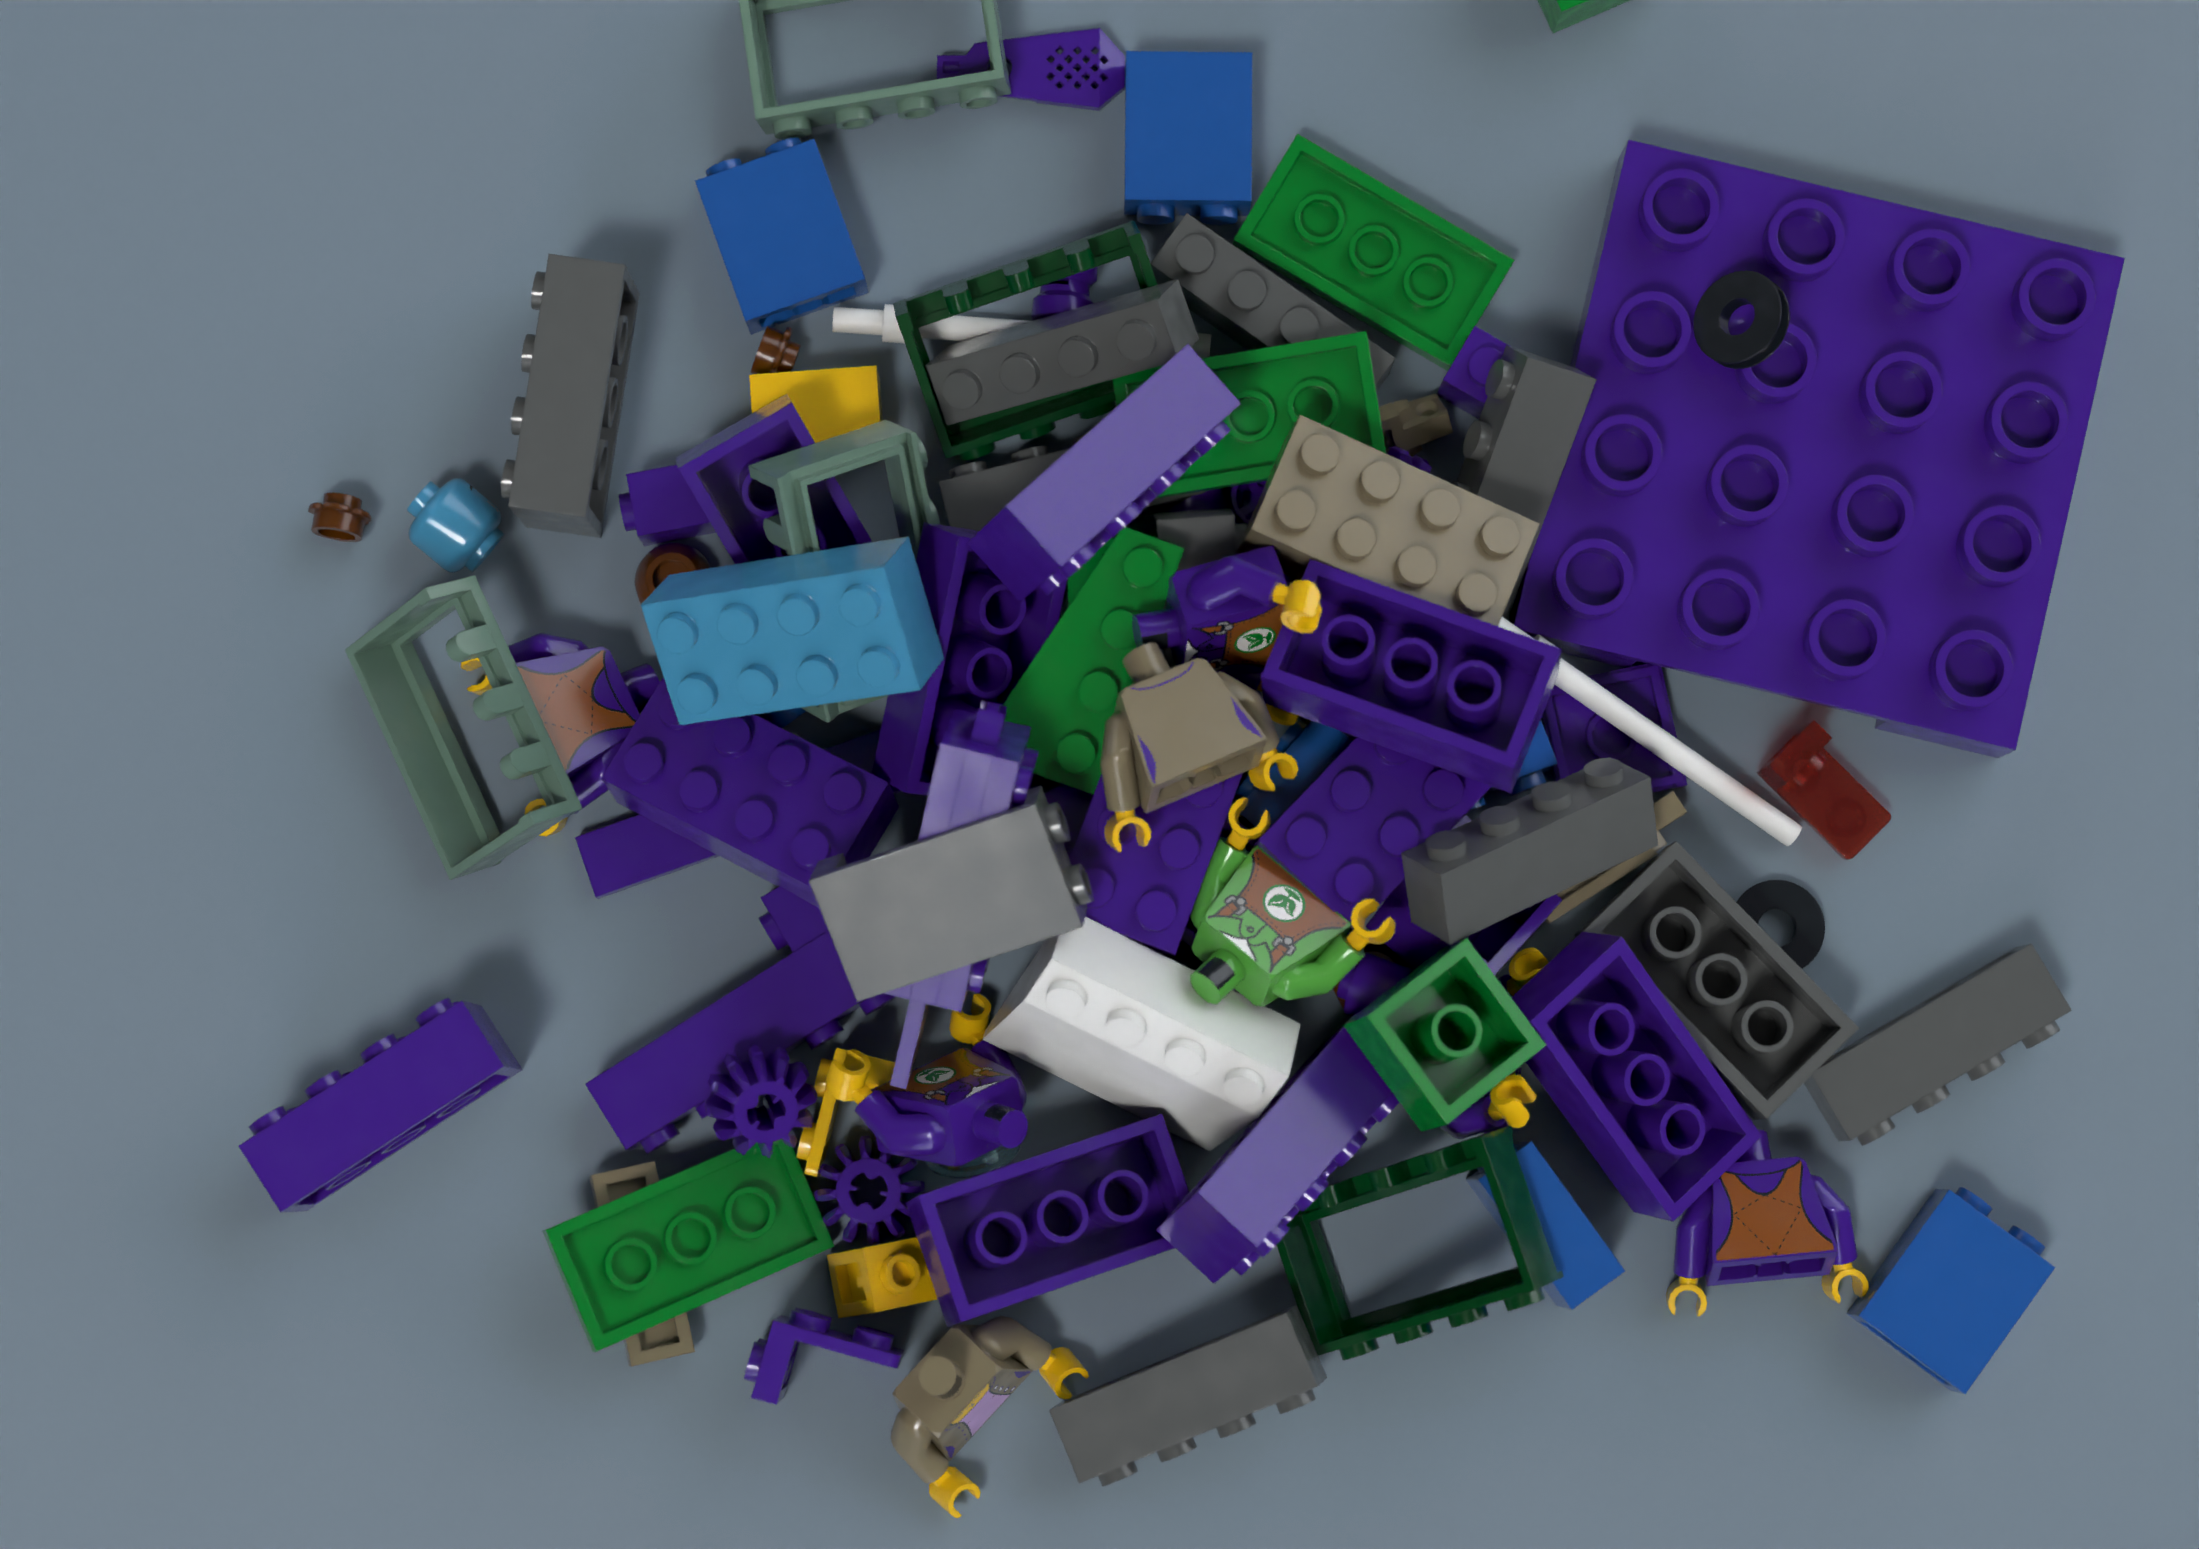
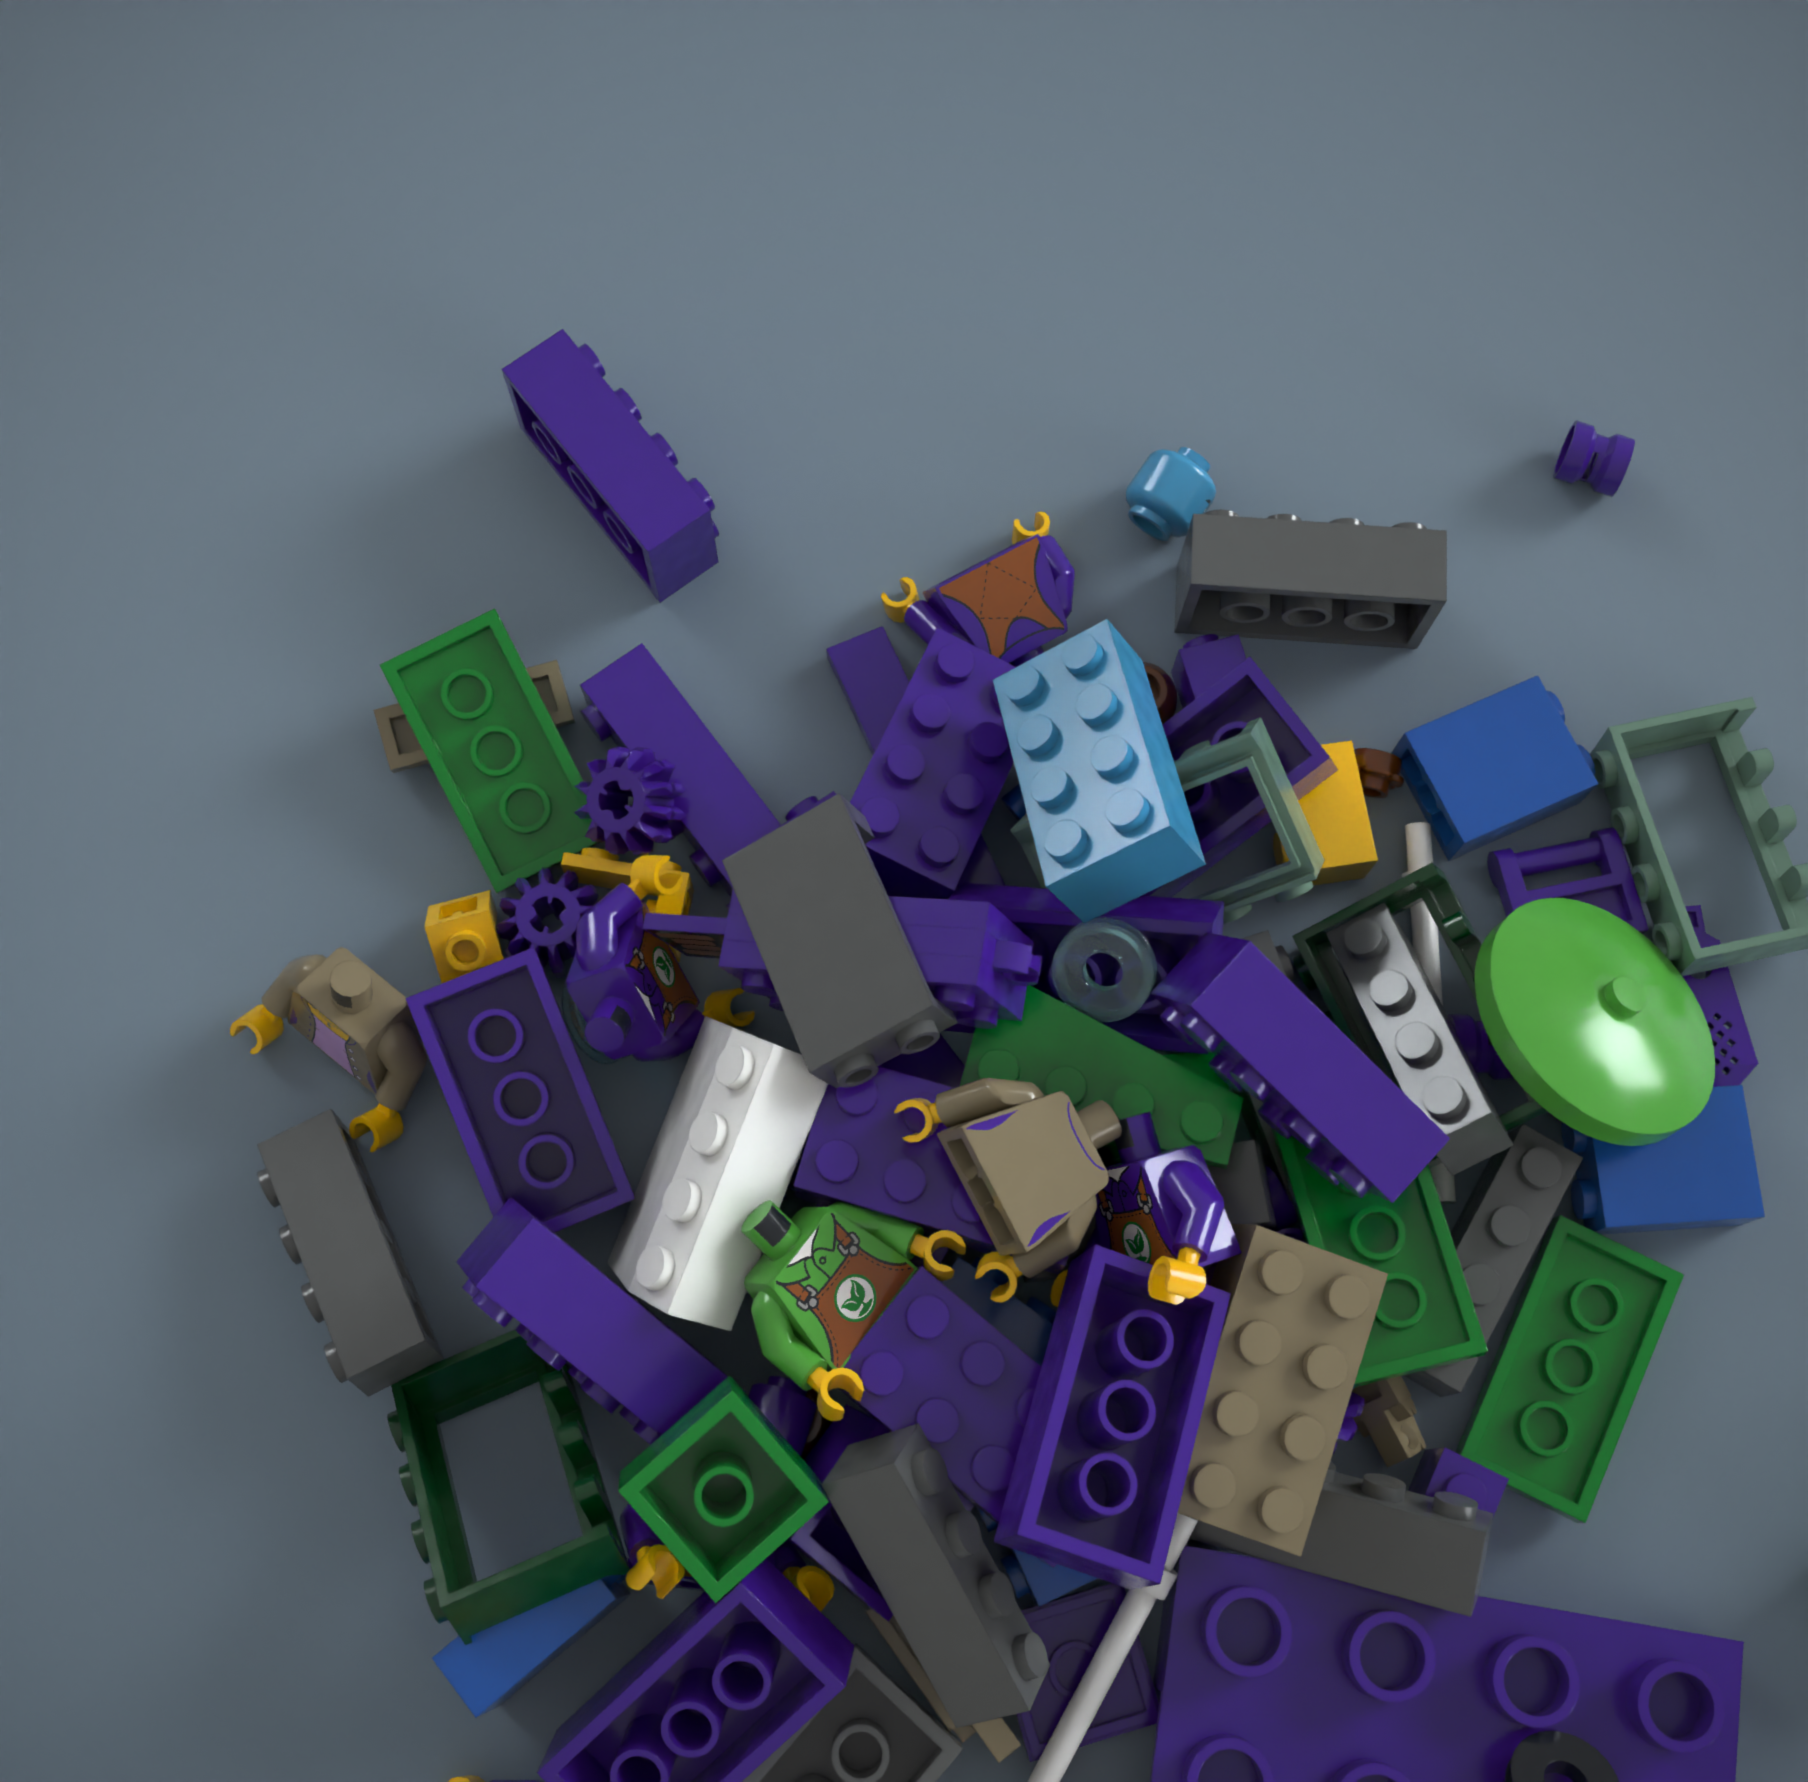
camera: 85 degrees right, 10 degrees down
(339, 517) = (1166, 397): reddish brown plate -> none
(426, 743) = (974, 479): sand green window -> none
(451, 83) = (1594, 458): none -> dark purple wheel
(774, 1358) = (406, 873): dark purple bracket -> none
(936, 182) = (1610, 891): none -> dark purple plate
(962, 631) = (1122, 943): none -> clear light blue piece
(1060, 183) = (1594, 1022): none -> bright green dish

